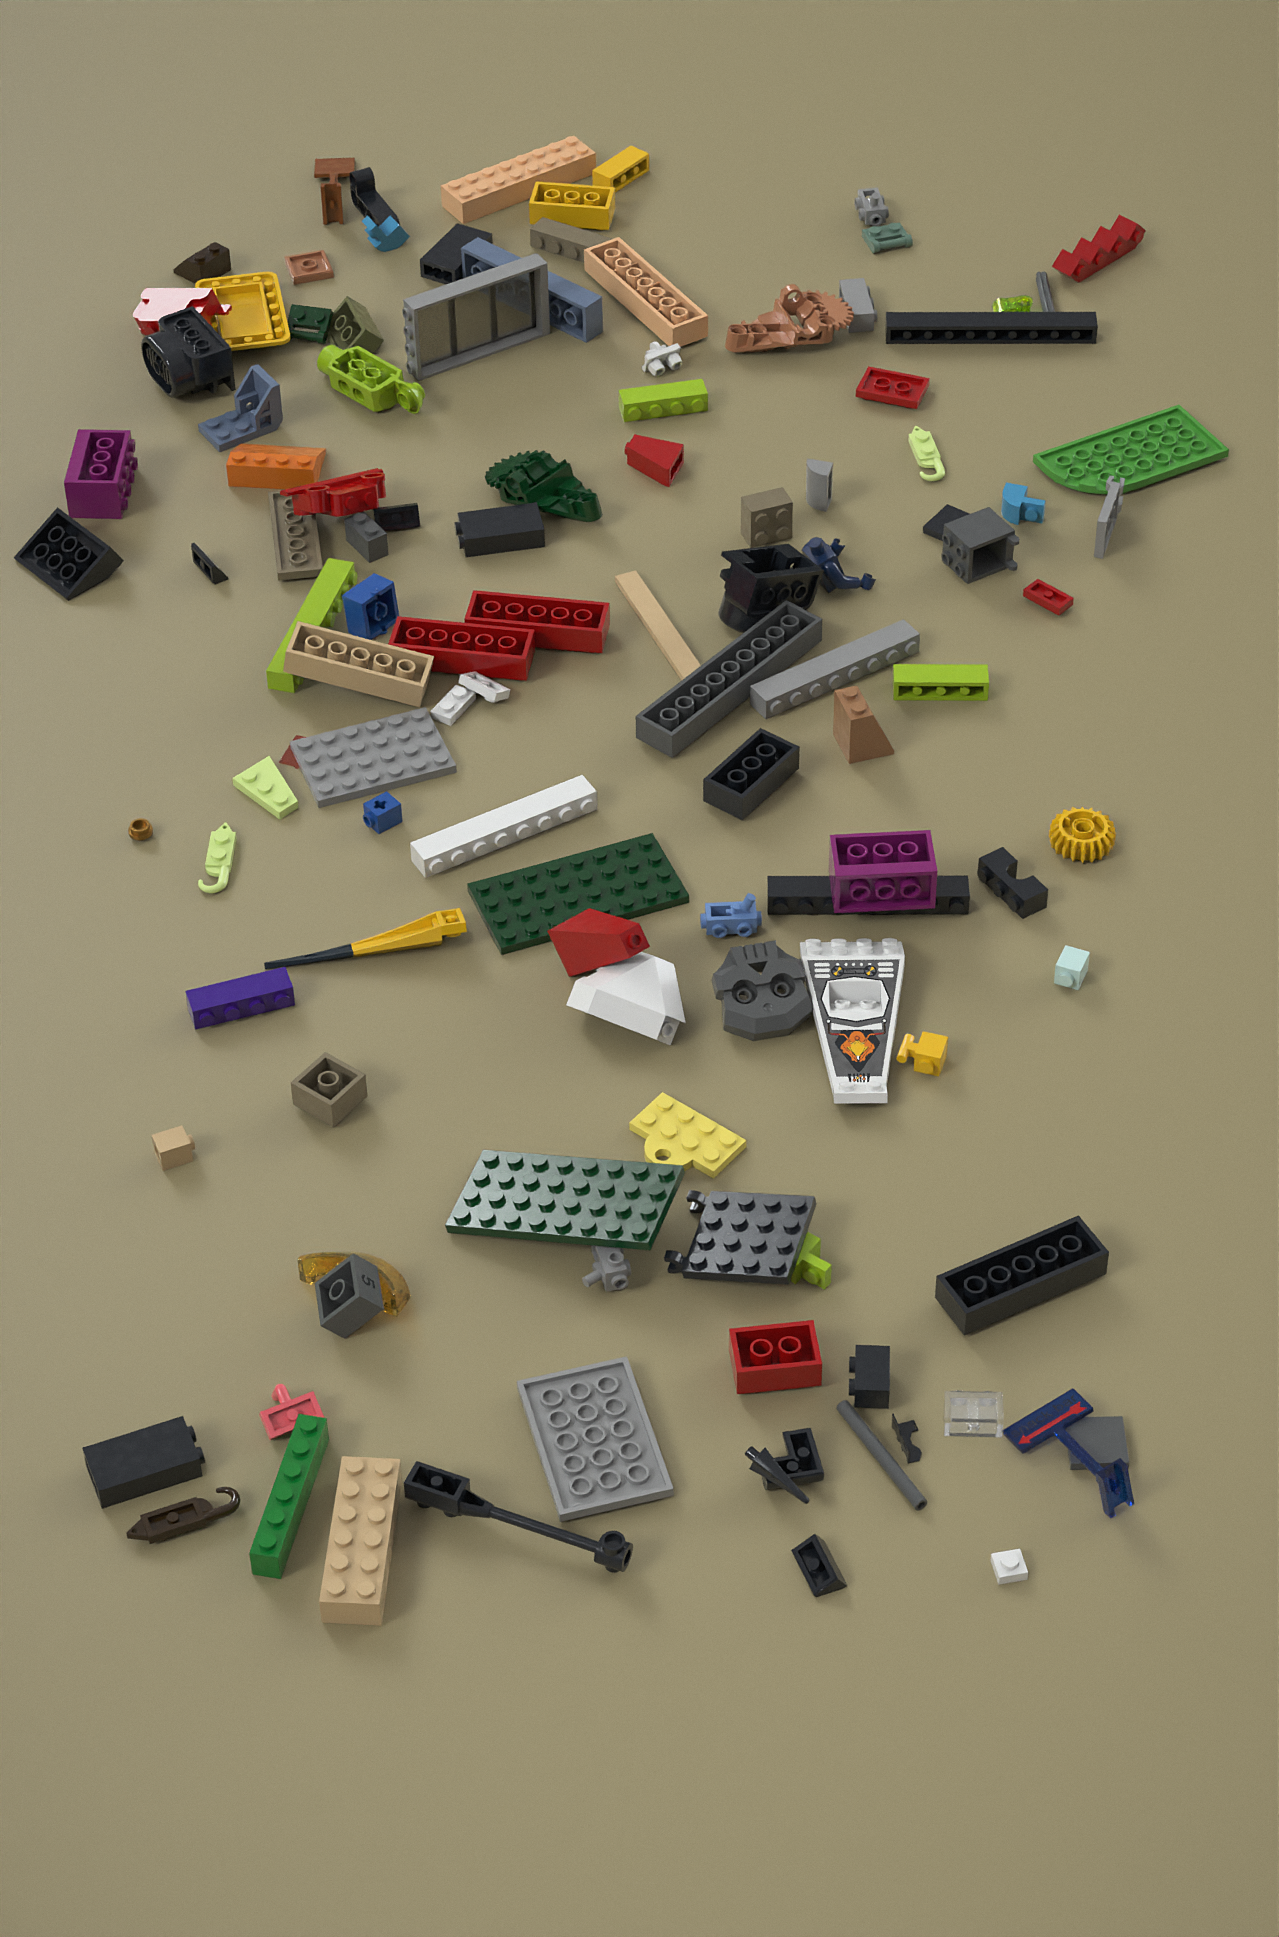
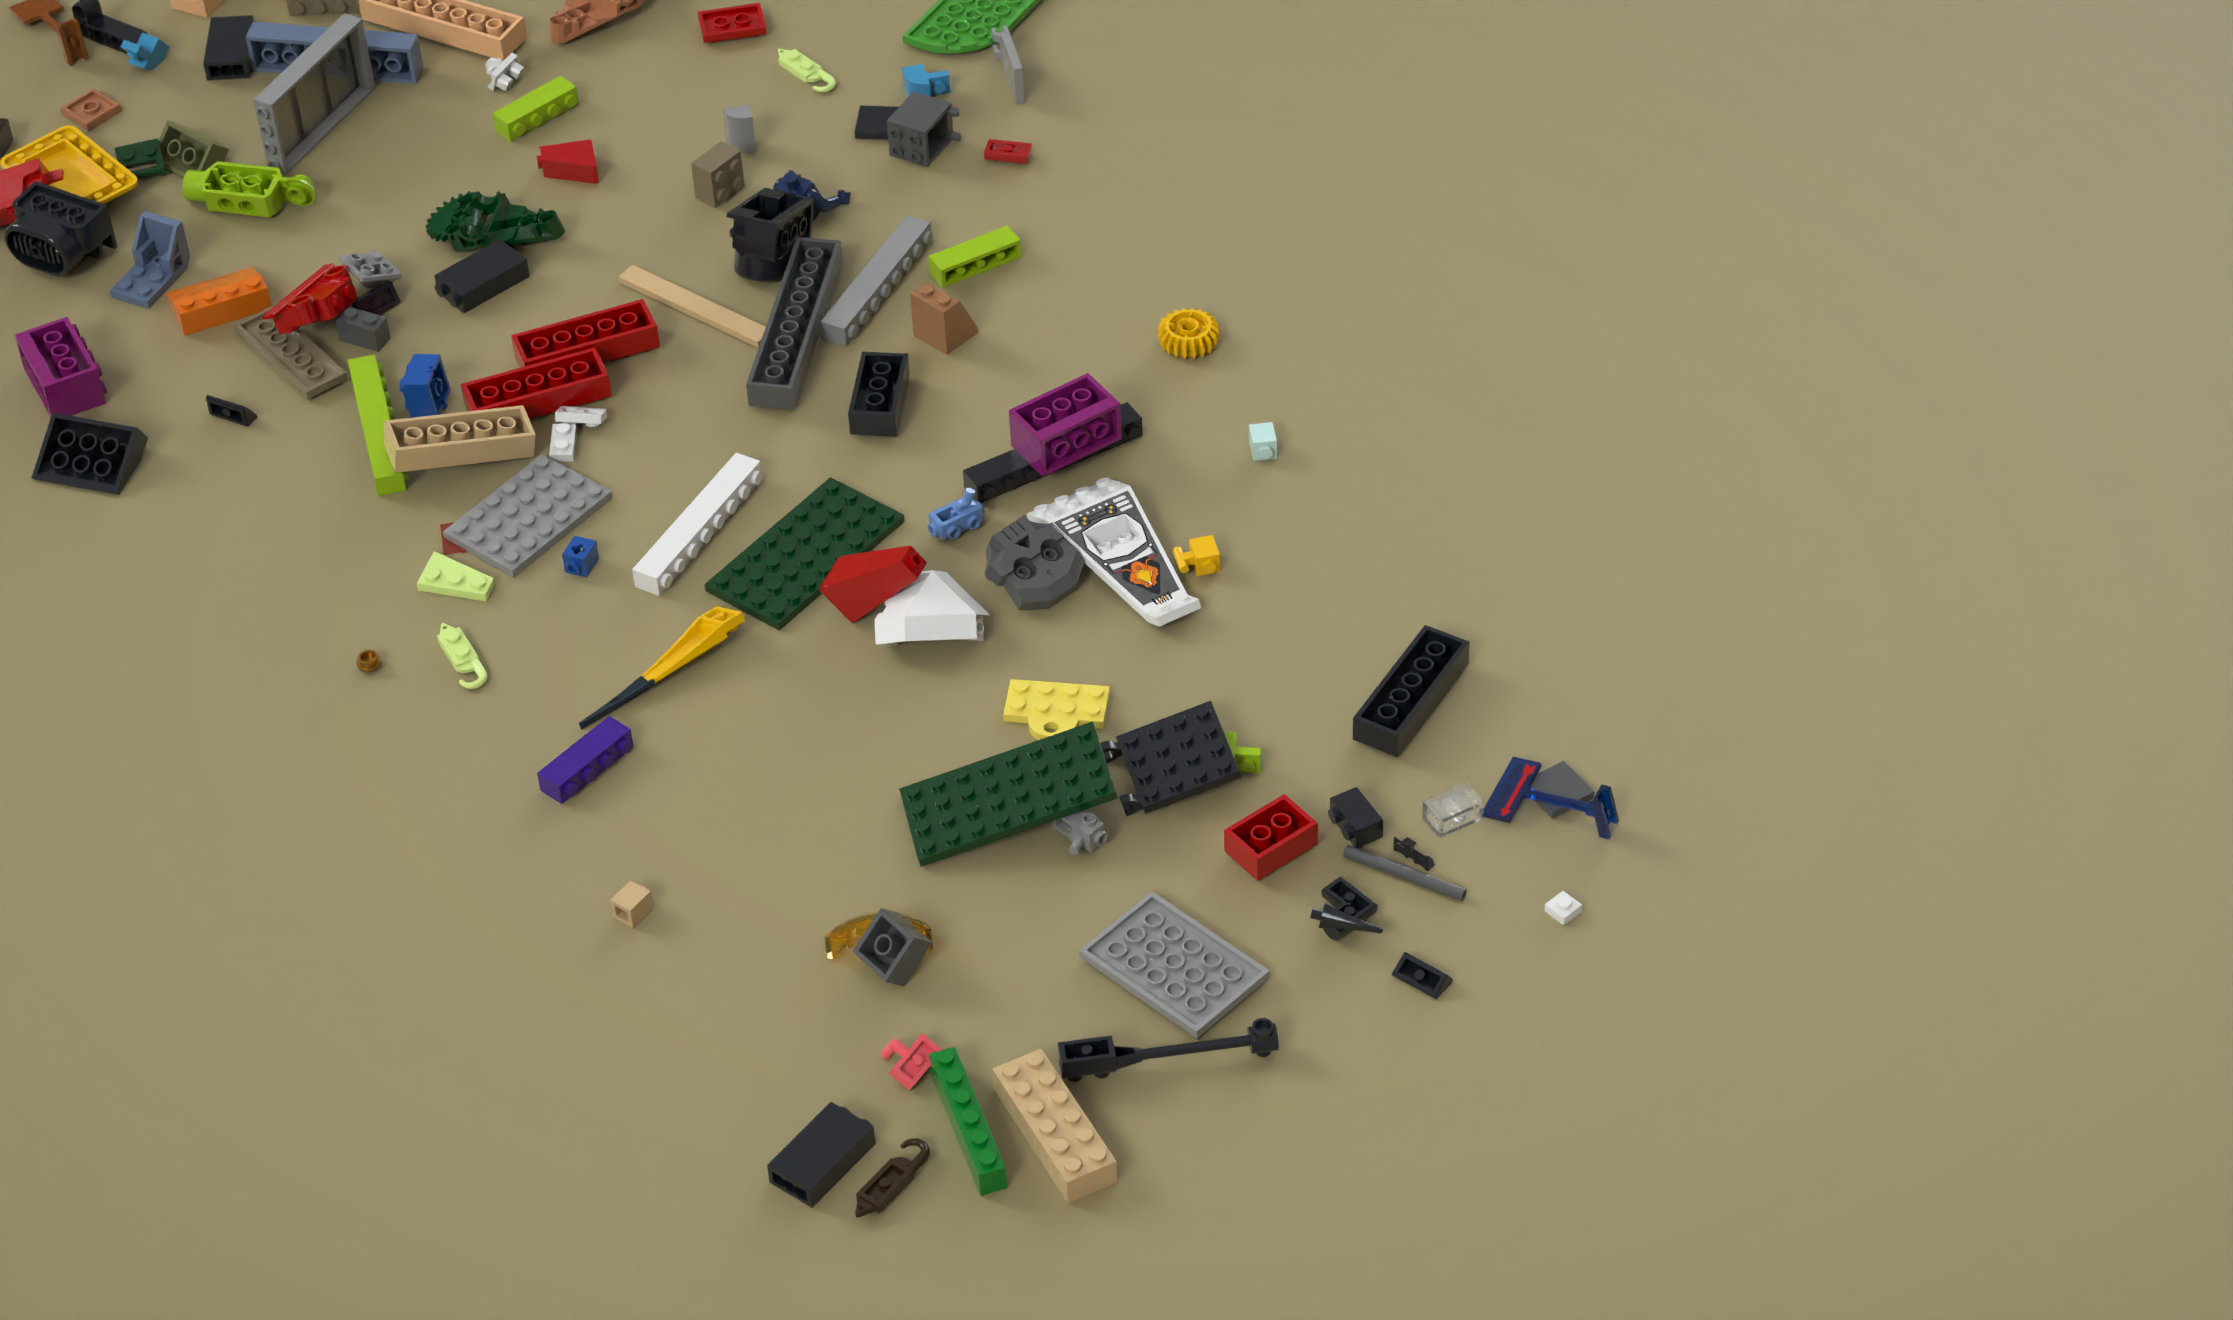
camera: 30 degrees left, 0 degrees up
(329, 1089) = (731, 797): dark tan brick -> none
(407, 485) = (370, 268): none -> light grey slope
(999, 873) = (1180, 401): black arch -> none

